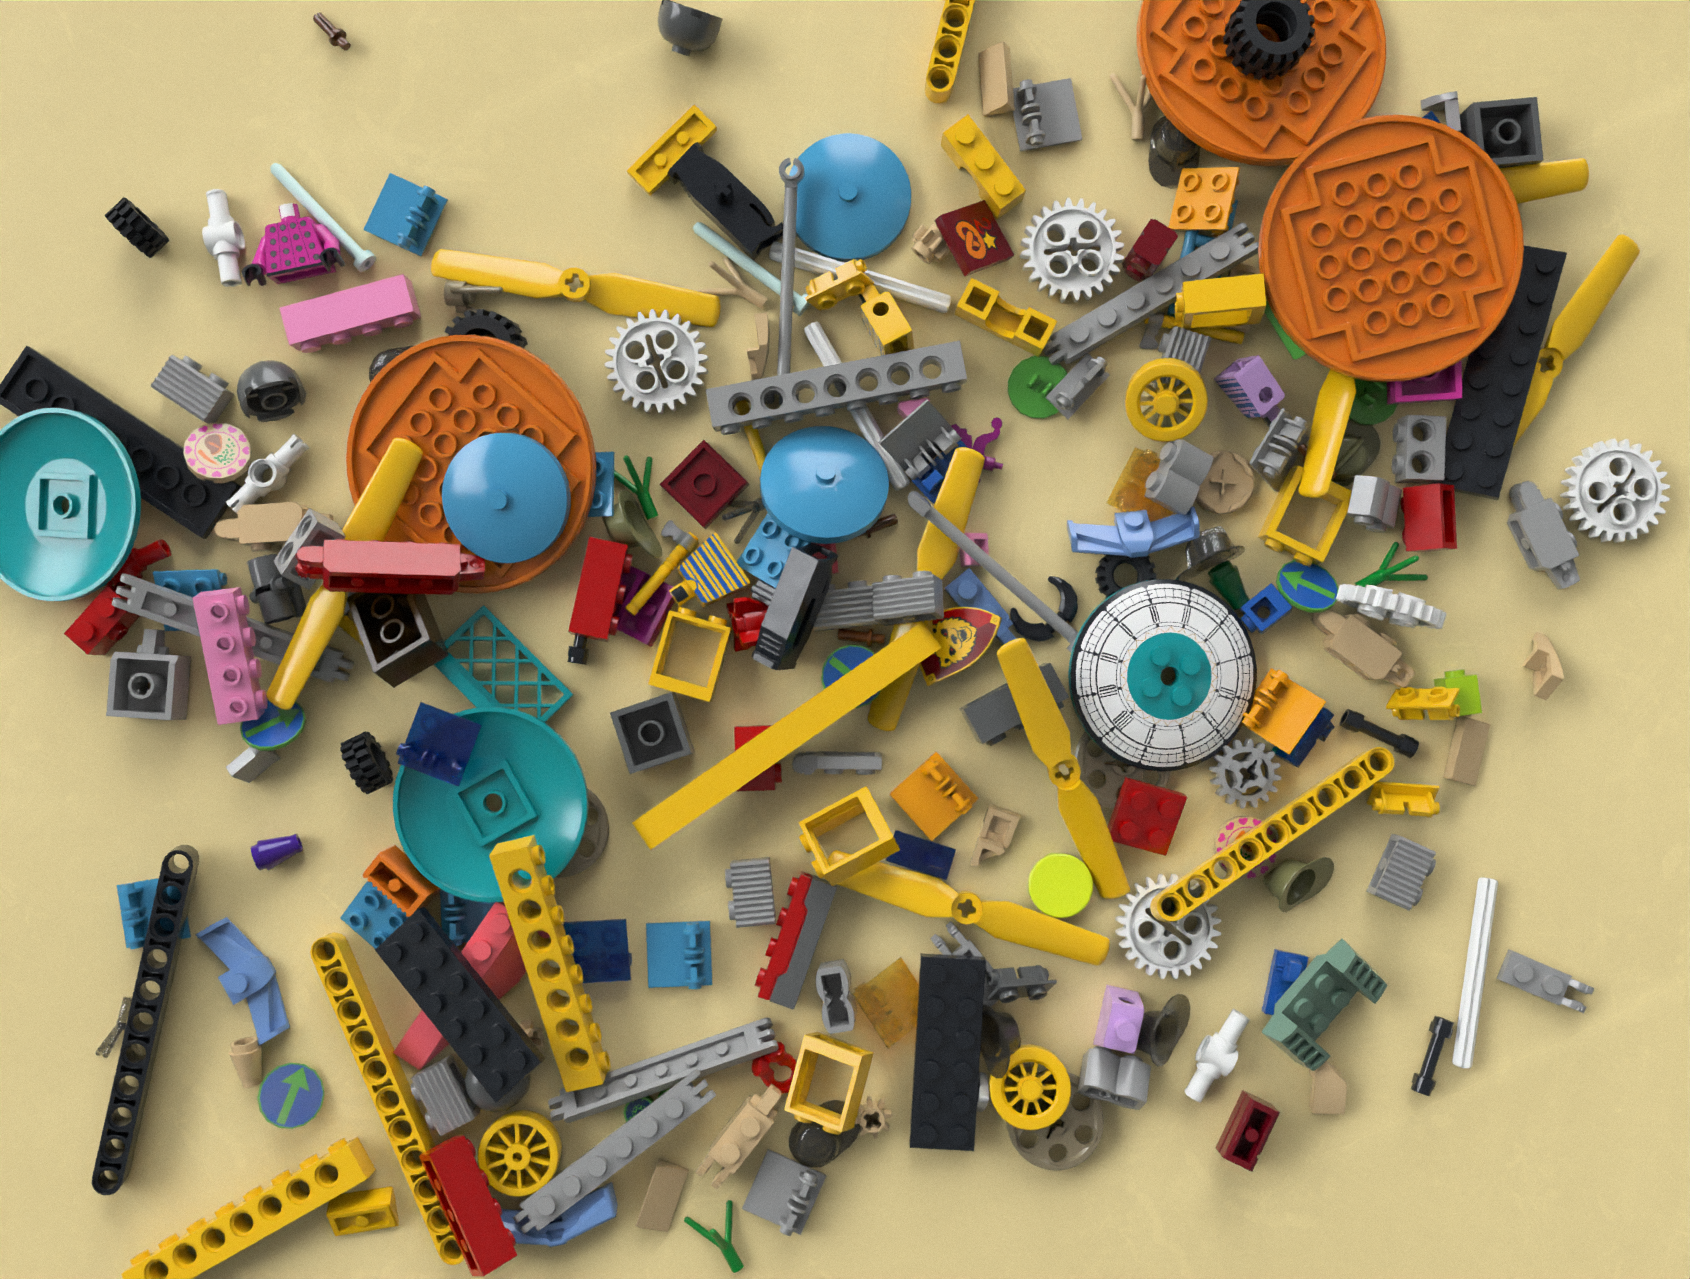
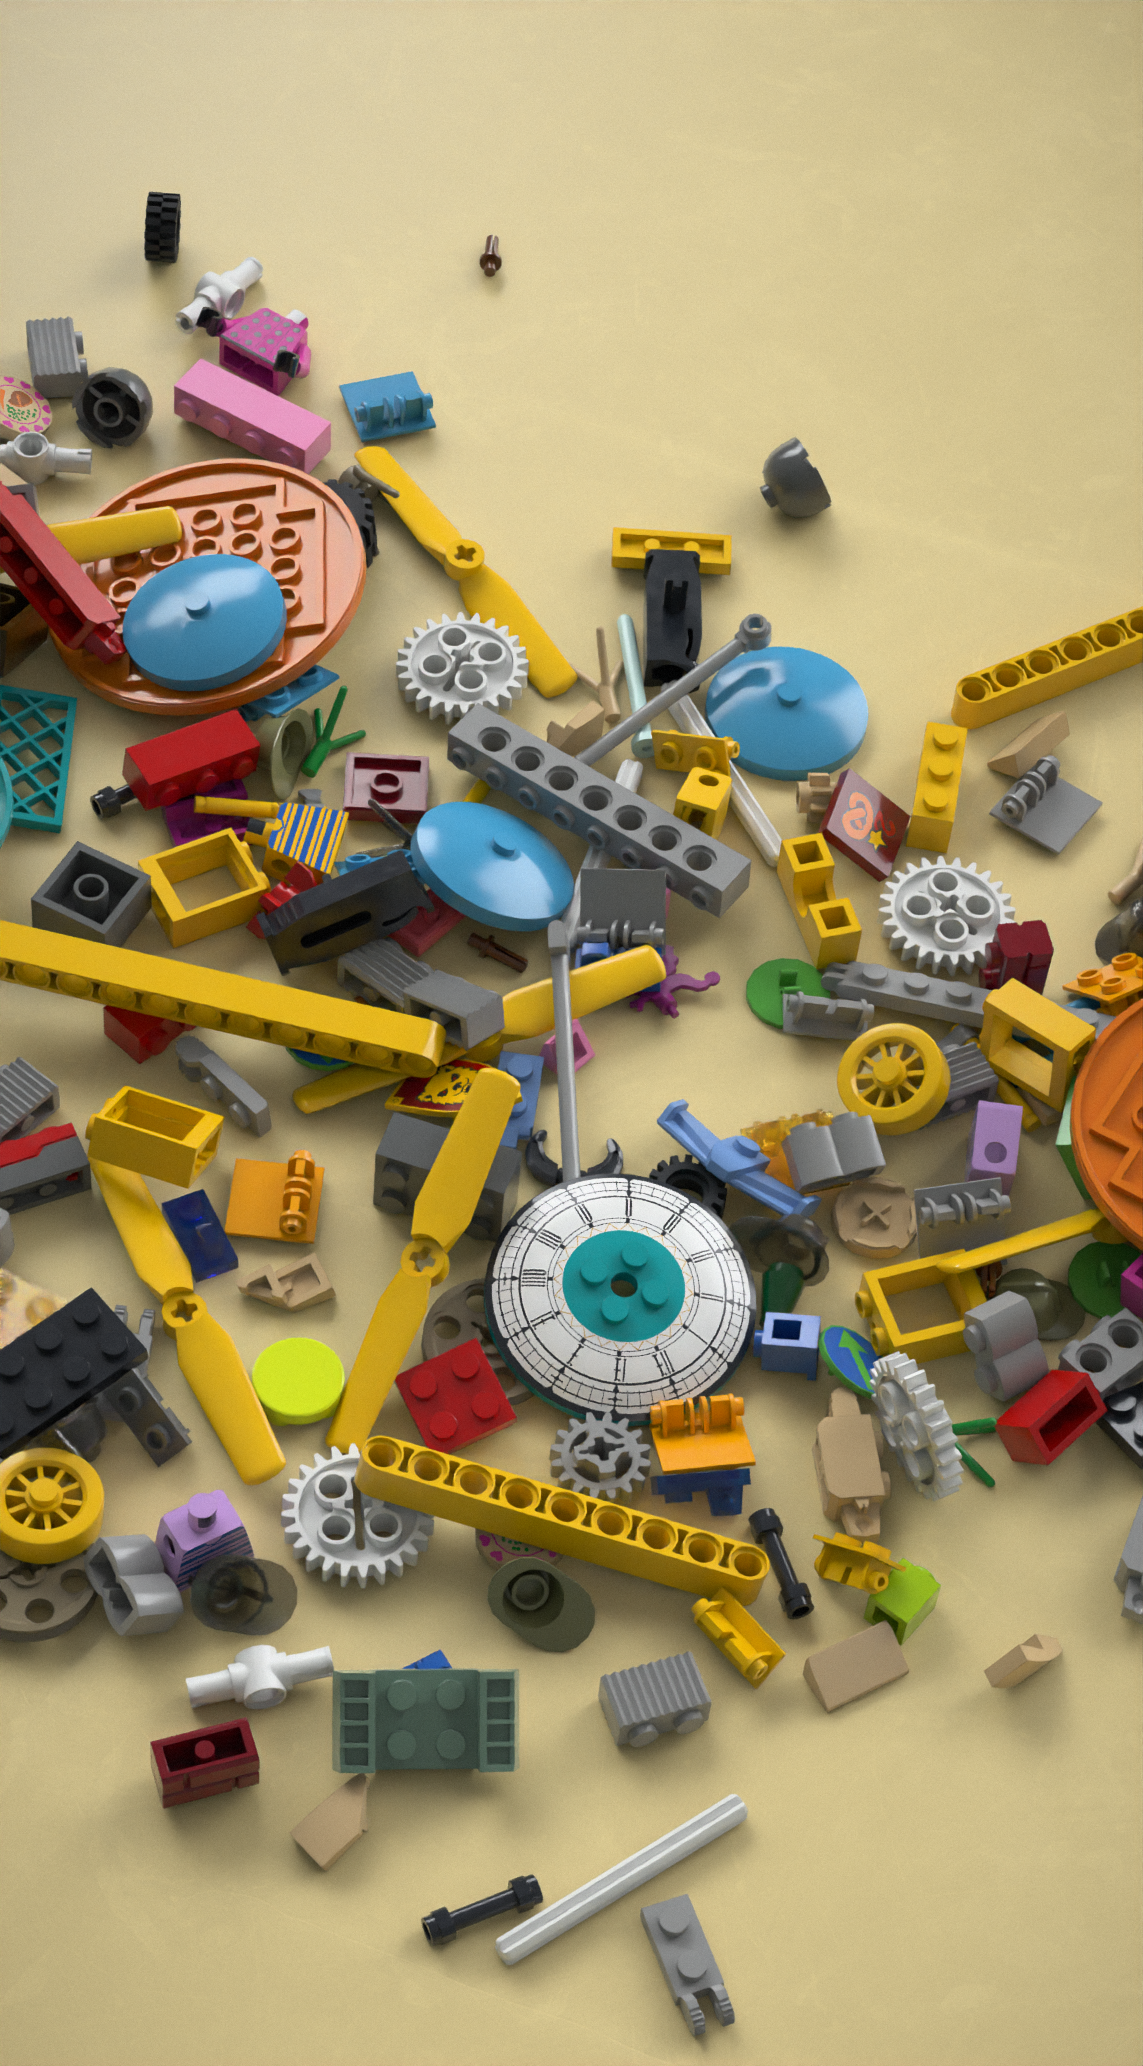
camera: 40 degrees right, 35 degrees down
(363, 259) = (311, 398): light aqua bar -> none

